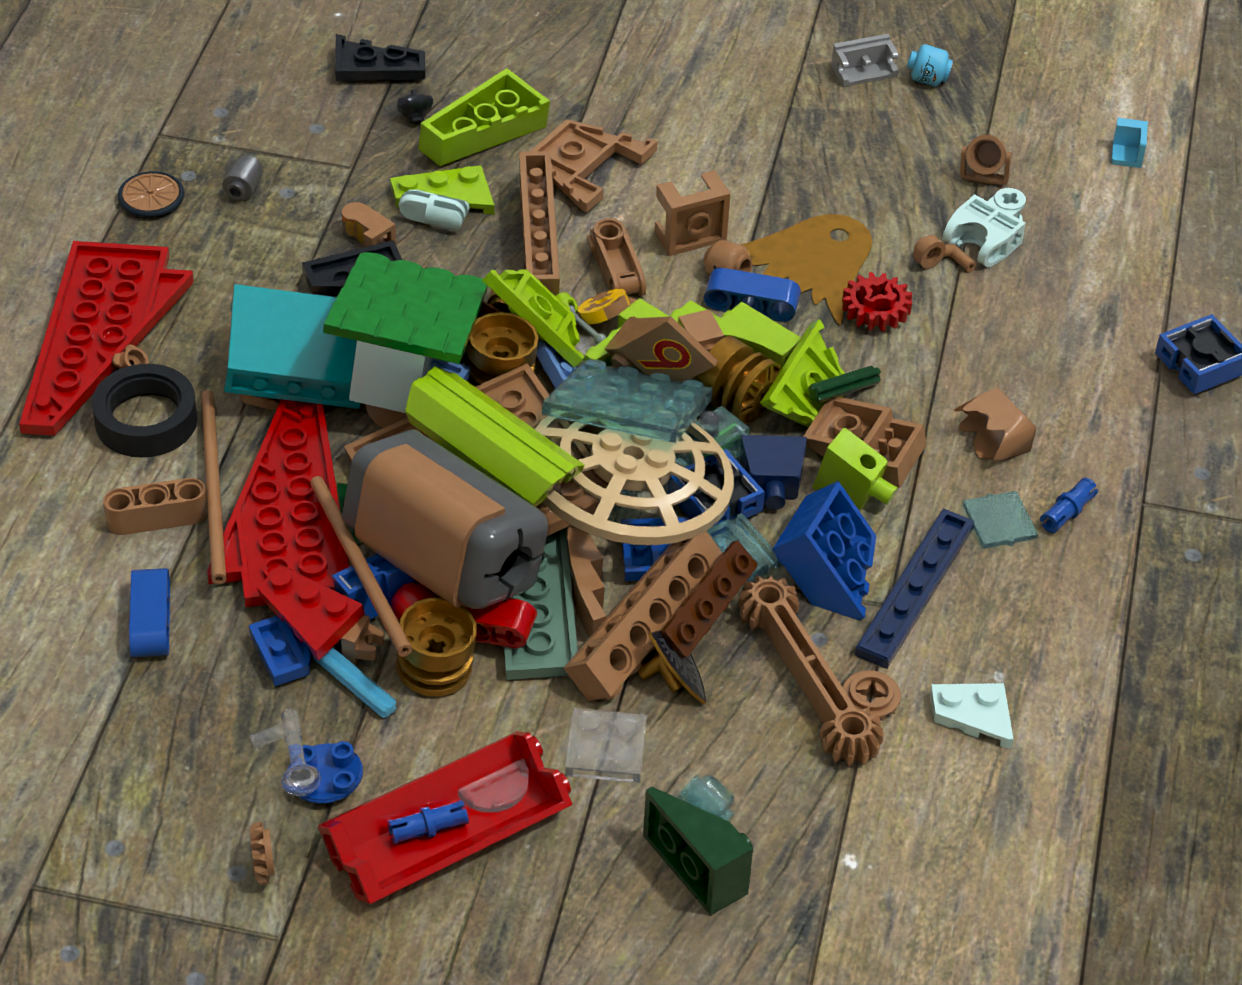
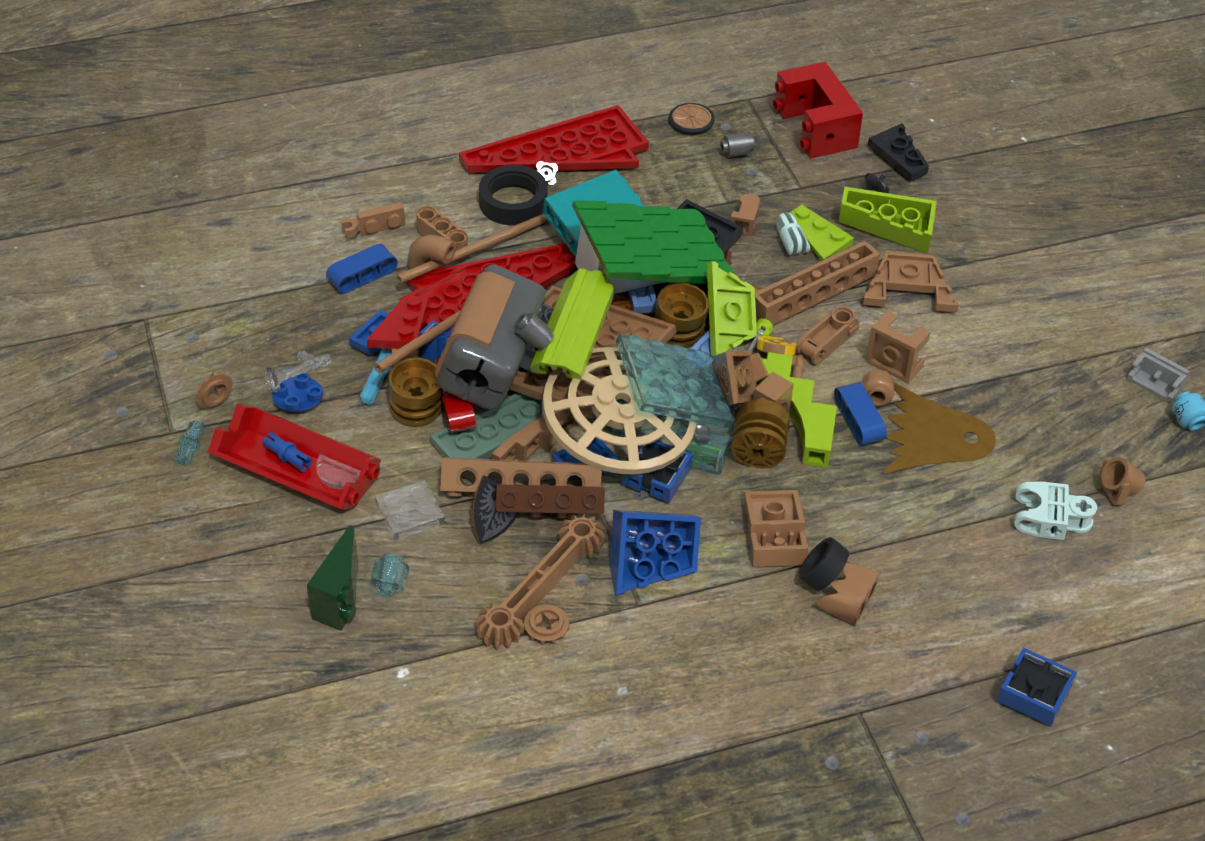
camera: 60 degrees right, 0 degrees up
(71, 560) = (375, 220): none -> medium nougat plate
(194, 523) = (430, 247): none -> medium nougat cylinder
(259, 71) = (829, 112): none -> red piece
(328, 921) = (189, 442): none -> clear light blue axle
(500, 464) = (533, 331): none -> flat silver brick
(750, 538) = (622, 496): clear light blue plate -> none
(775, 465) = (706, 490): dark blue torso -> none
(805, 366) = (795, 469): lime wing -> none
(844, 384) = (812, 492): dark green axle -> none
(856, 468) = (730, 528): lime torso -> none
(877, 301) = (914, 479): red gear -> none
(914, 588) = (665, 610): dark blue tile -> none
(930, 251) = (994, 489): medium nougat plate -> none
(973, 709) = (577, 687): light aqua wing -> none
(978, 422) = (824, 564): none -> black tyre
(1000, 519) = (769, 633): clear light blue piece -> none
(1068, 505) = (812, 665): blue pin -> none

